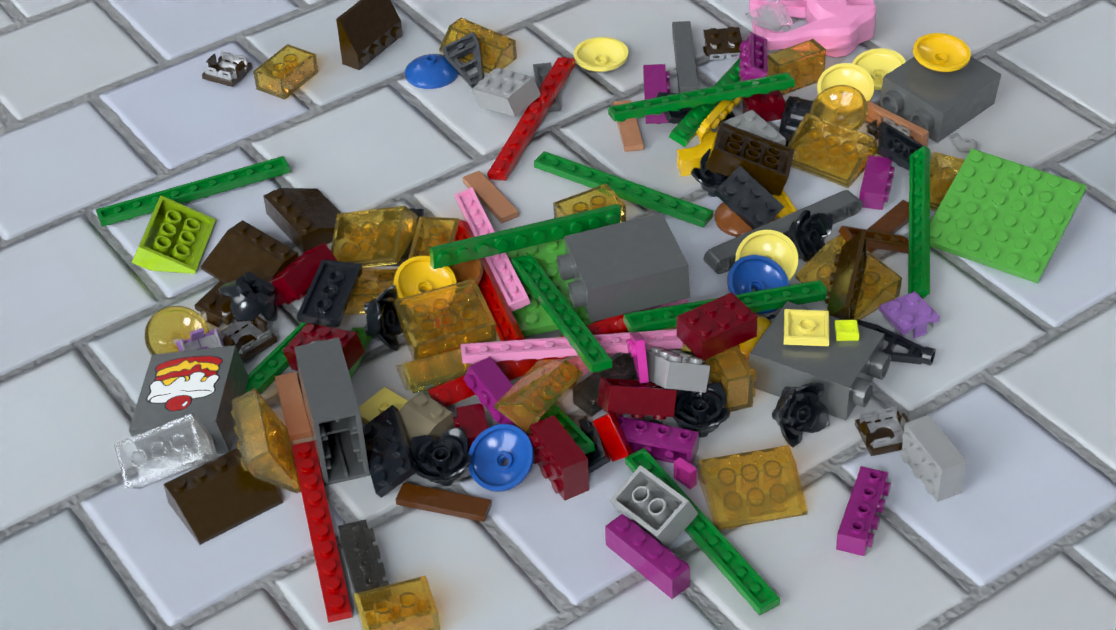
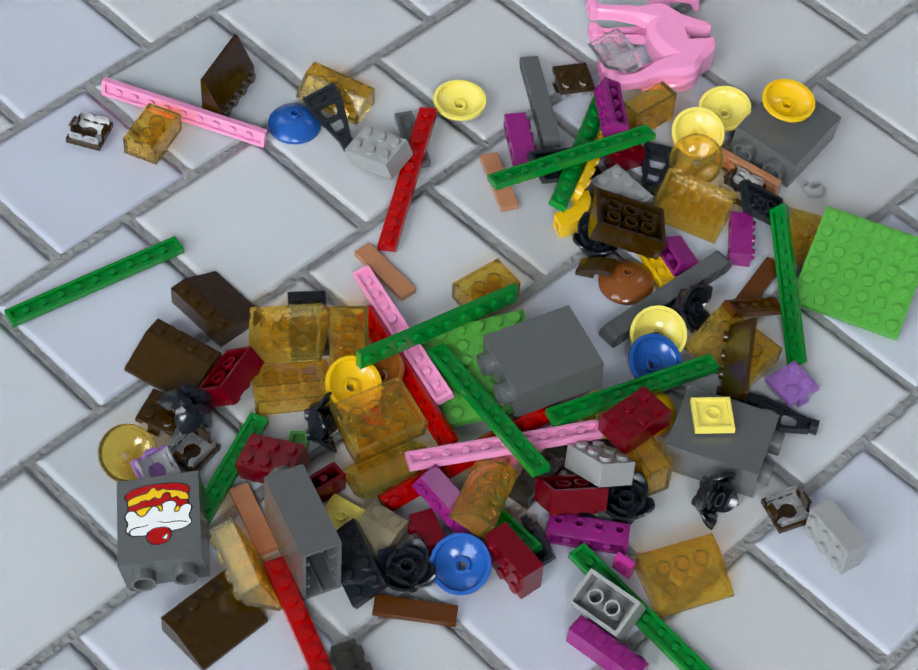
camera: 15 degrees left, 10 degrees up
(164, 452) = (157, 586): clear slope -> none
(173, 238) = (90, 339): lime slope -> none
(328, 58) = (189, 113): none -> bright pink plate
(330, 293) = (267, 400): black plate -> none
(373, 375) = (329, 481): none -> dark red brick
(612, 436) = (556, 535): red slope -> none
(624, 189) = (509, 257): green plate -> none
(637, 348) = (570, 453): dark pink wing -> none
(708, 199) = (596, 265): none -> dark brown slope
(748, 199) = (632, 269): black plate -> none
(801, 191) = (677, 255): none -> magenta brick
(846, 330) = (747, 414): neon yellow tile -> none
(862, 511) = (781, 591): magenta brick -> none

